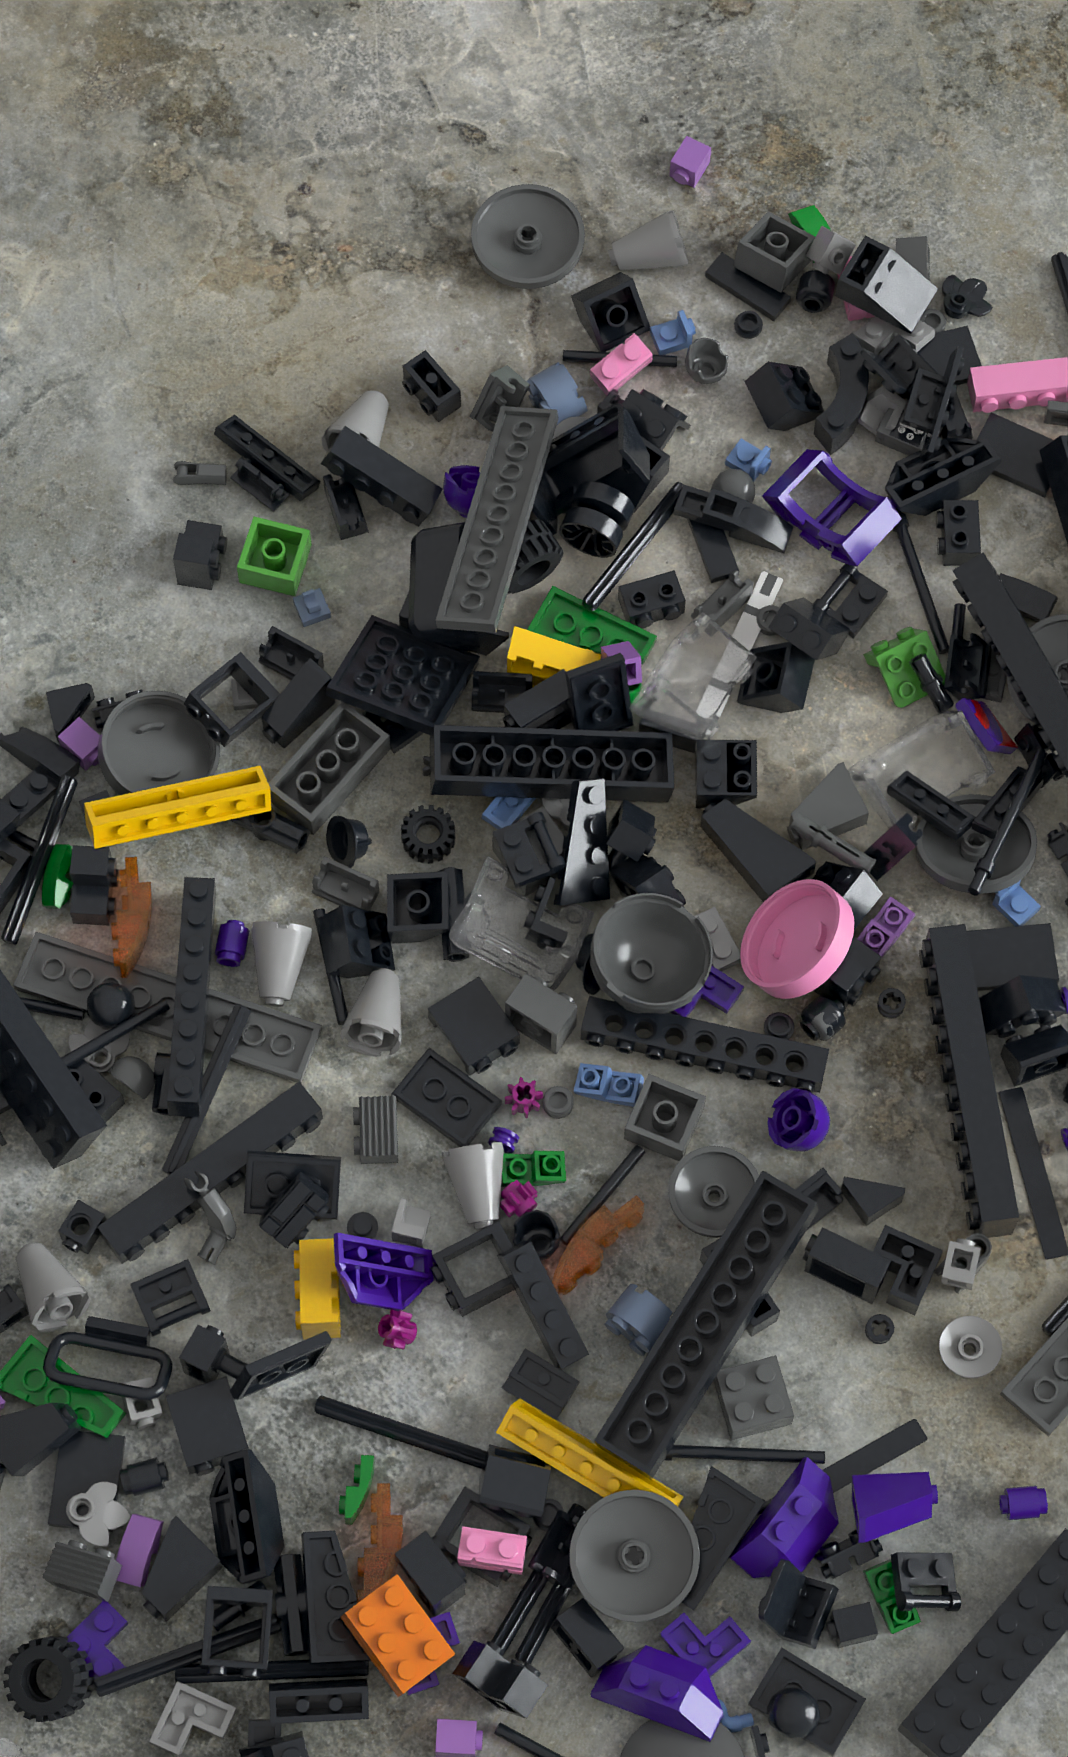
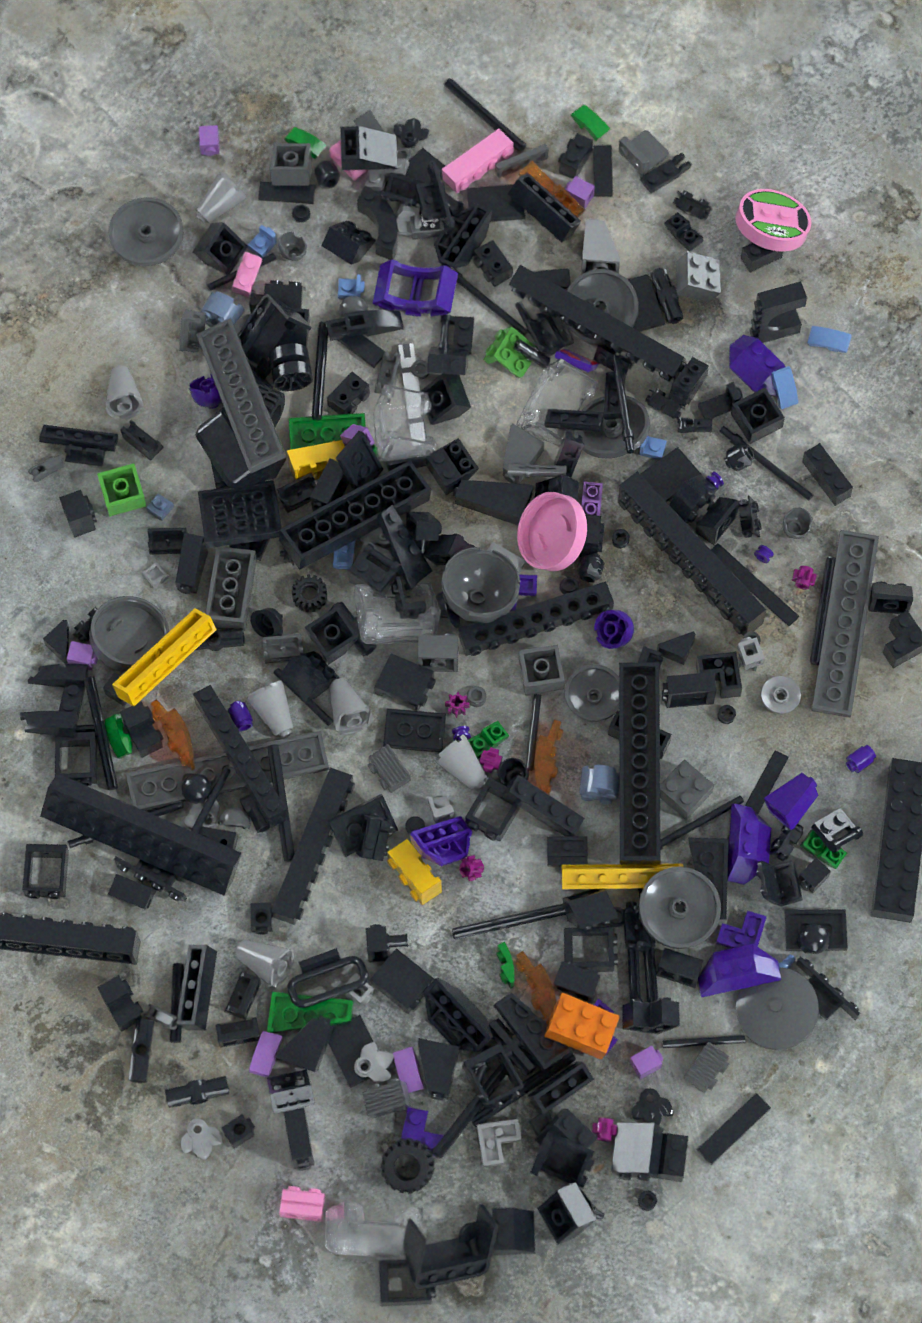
camera: 30 degrees left, 0 degrees up
(144, 1477) = (385, 1029): black brick -> none
(166, 1288) = (329, 923): black plate -> none
(218, 1215) = (334, 865): dark grey arm -> none
(250, 680) = (157, 566): black window -> none
(280, 1365) = (423, 923): black tile -> none
(381, 476) = (154, 410): black brick -> none
(431, 385) = (147, 345): black brick -> none
(492, 1550) = (603, 950): bright pink brick -> none
(607, 1085) = (498, 671): medium blue slope -> none
(830, 251) = (323, 146): light grey brick -> none

